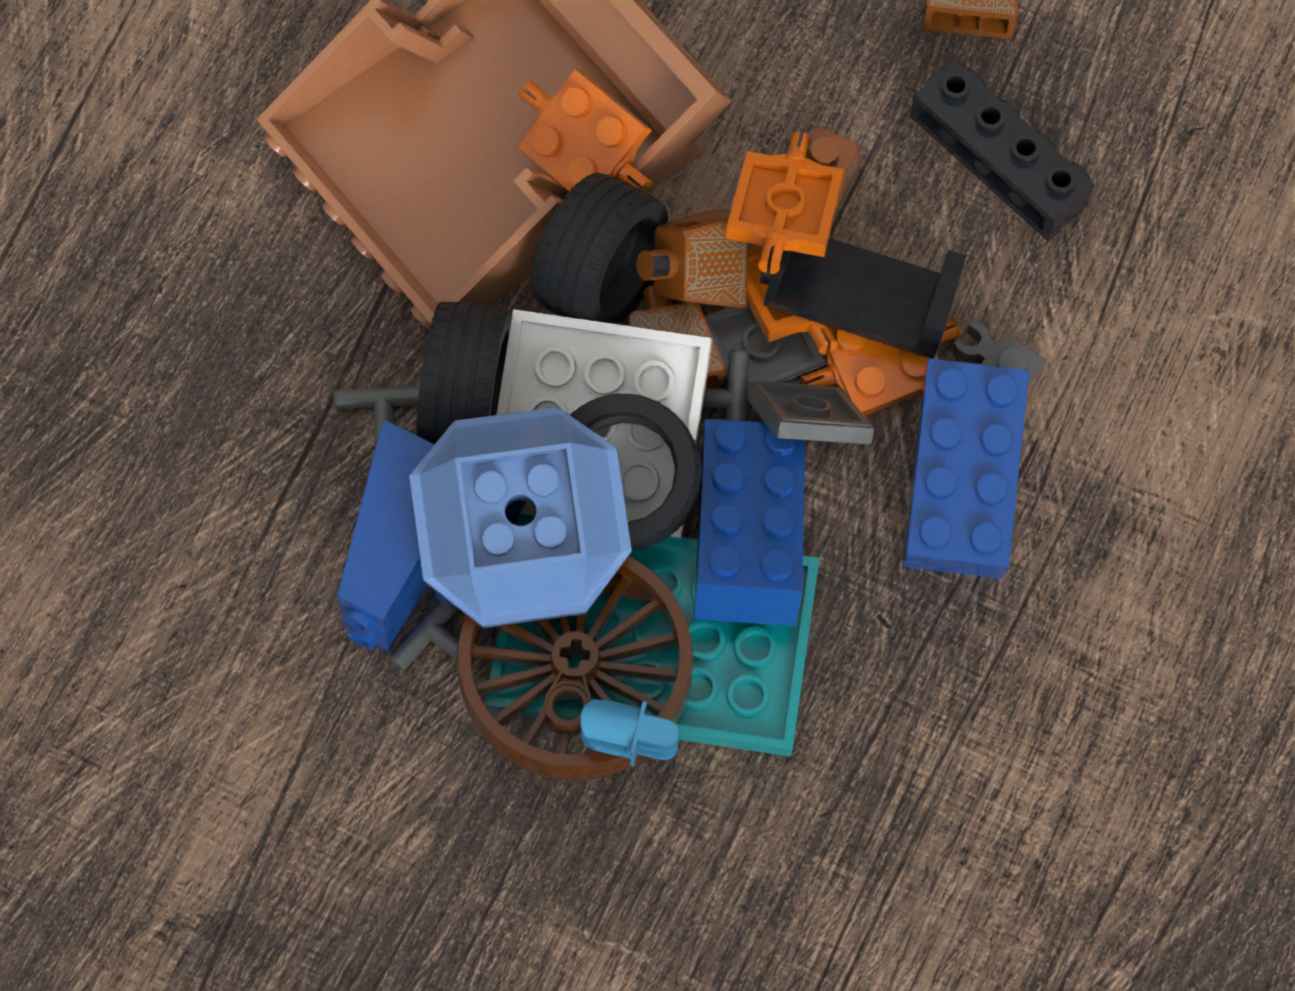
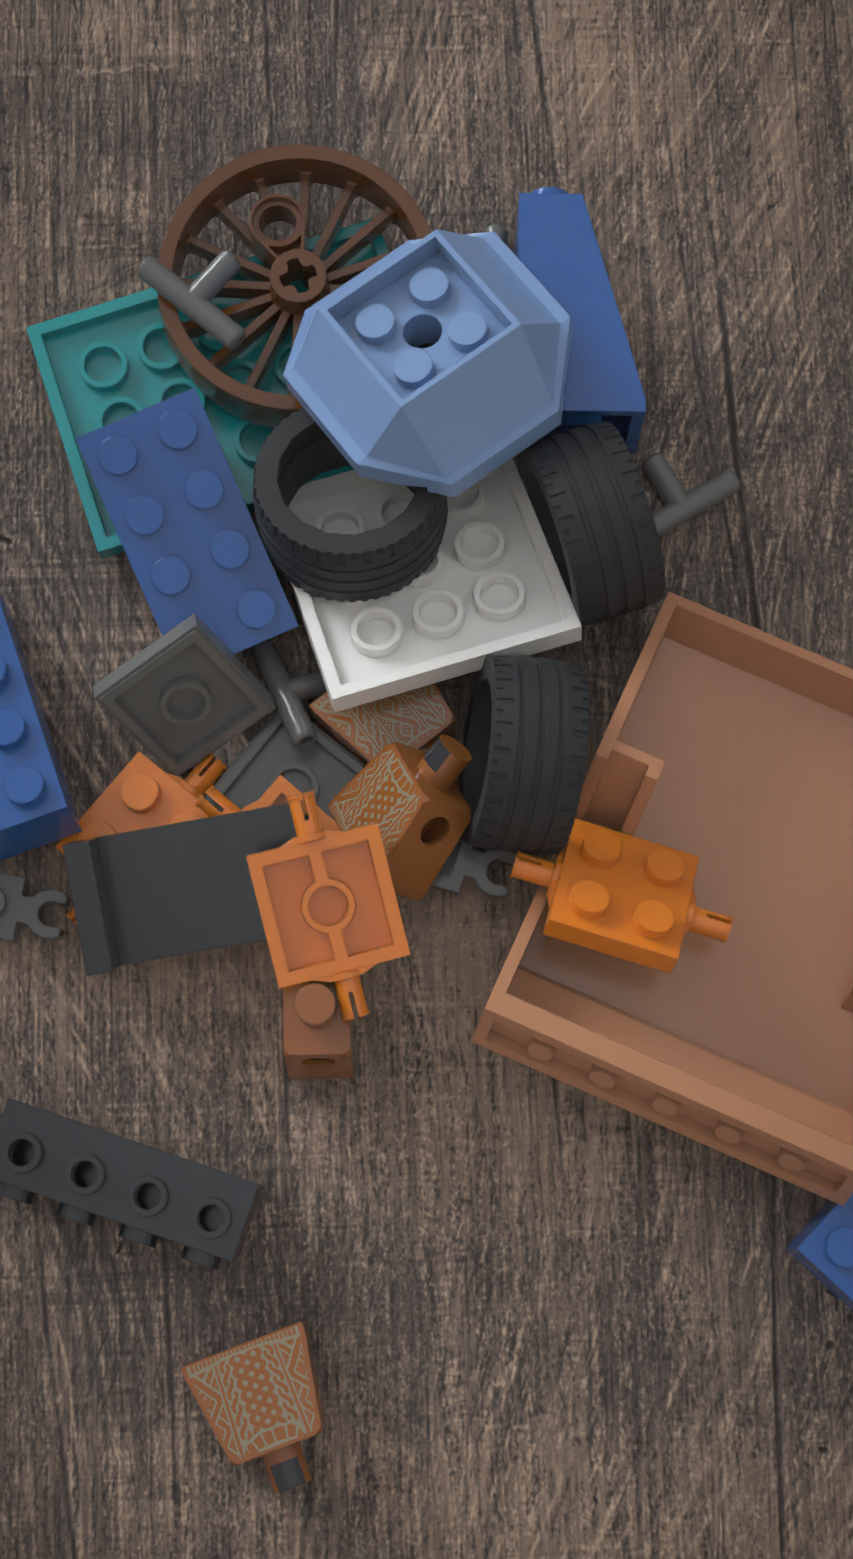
camera: 155 degrees right, 10 degrees up
(627, 731) = (189, 200): dark azure arm -> none
(661, 666) = (196, 298): none -> dark grey piece

